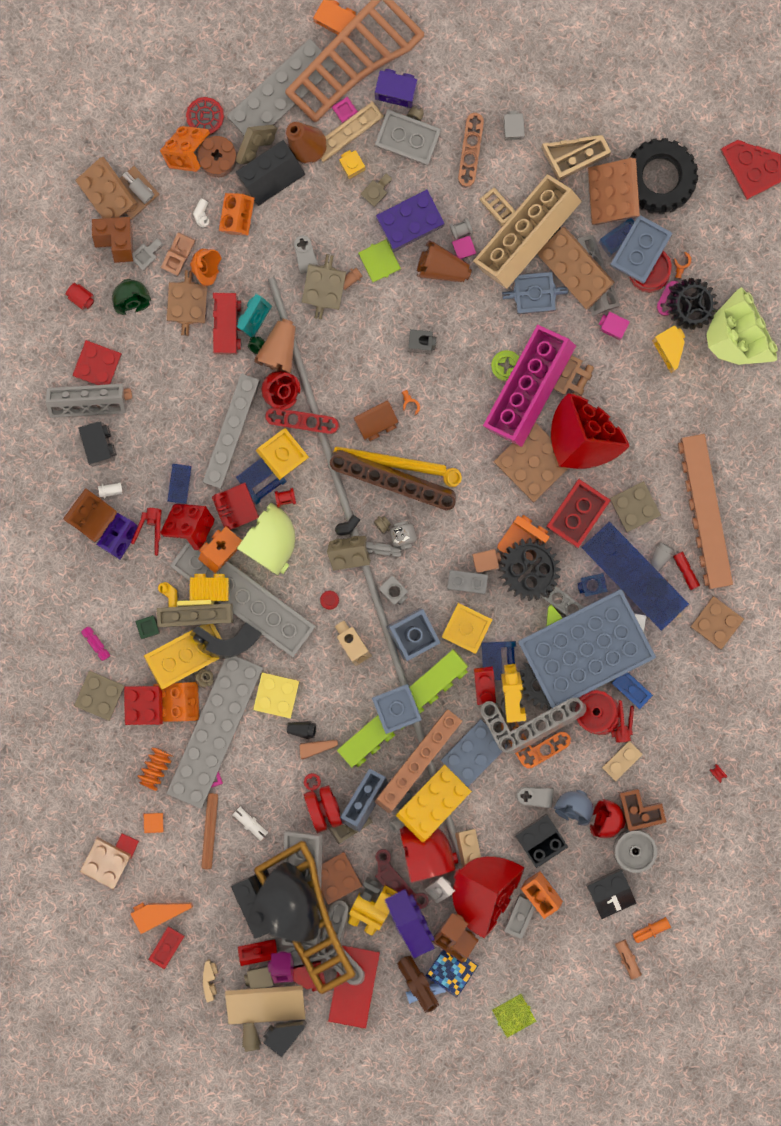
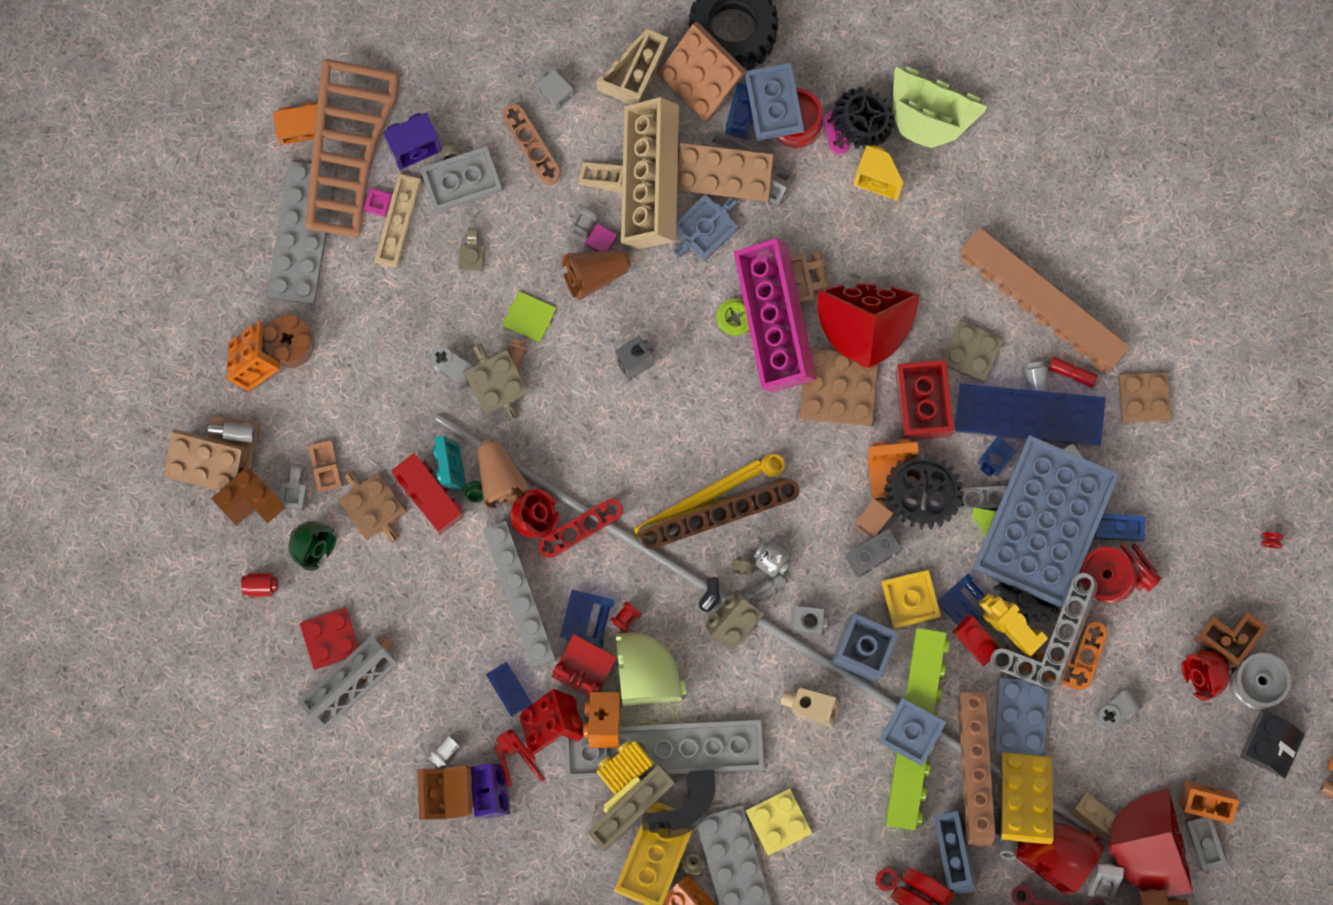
camera: 45 degrees left, 10 degrees down
(97, 444) = (394, 715): black brick -> none
(147, 627) = (593, 859): dark green plate -> none
(170, 592) = (587, 806): yellow arm -> none
(199, 213) = (315, 411): white arm -> none
(205, 114) = (244, 310): tile -> none
(205, 265) = (361, 454): orange piece -> none
(236, 214) = (352, 381): orange brick -> none
(253, 138) = (311, 293): dark tan plate -> none
(270, 173) = (353, 316): black slope -> none
(282, 453) = (587, 576): yellow plate -> none
(302, 729) = (833, 834): black cone -> none
(306, 142) = (364, 259): dark orange cone -> none
(312, 748) = (858, 846): nougat slope -> none
(329, 600) = (752, 683): red plate -> none
(351, 163) = (427, 245): yellow brick -> none
(376, 421) = (653, 468): dark orange slope -> none
(407, 398) = (666, 425): orange piece -> none
(410, 220) = (528, 254): dark purple brick -> none
(541, 840) = (1161, 748): black slope -> none
(575, 806) = (1166, 686): sand blue cylinder -> none
(613, 325) = (806, 197): dark pink brick -> none
(622, 760) = (1170, 605): tan plate -> none
(680, 269) = (823, 97): orange piece -> none

